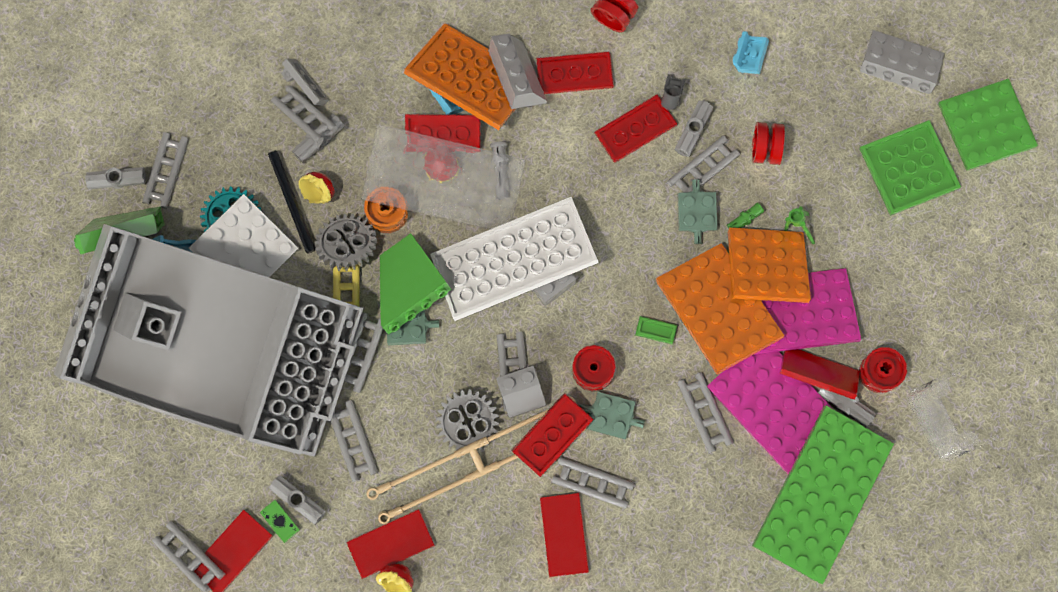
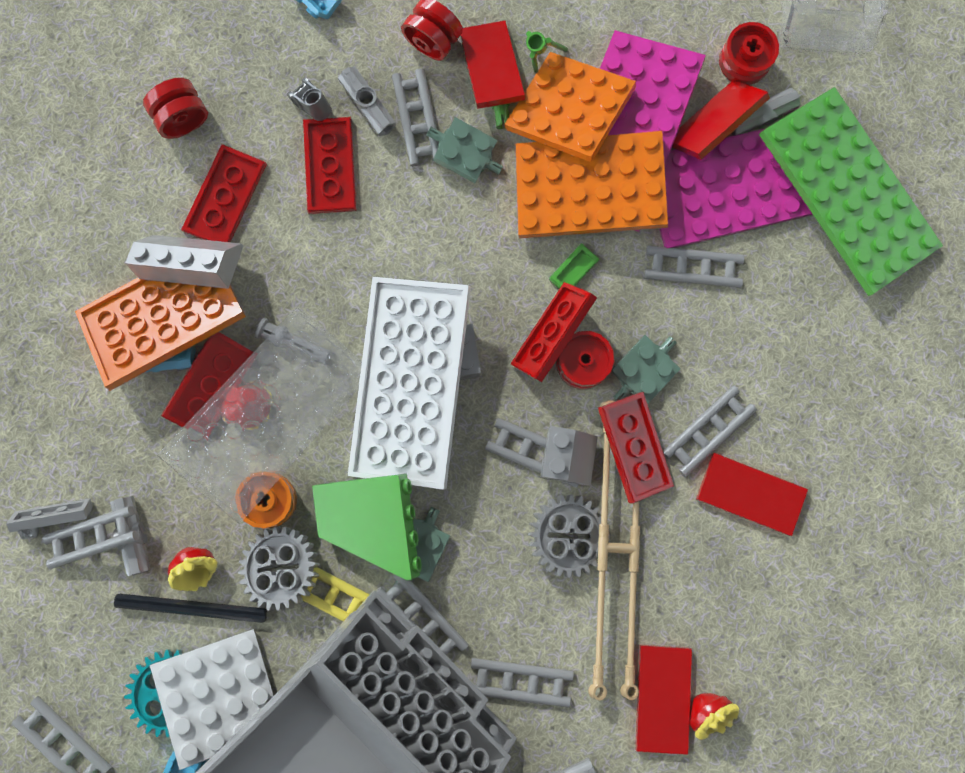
camera: 70 degrees left, 5 degrees up
(601, 335) = (553, 331): none -> red tile
(768, 196) = (492, 65): none -> red tile

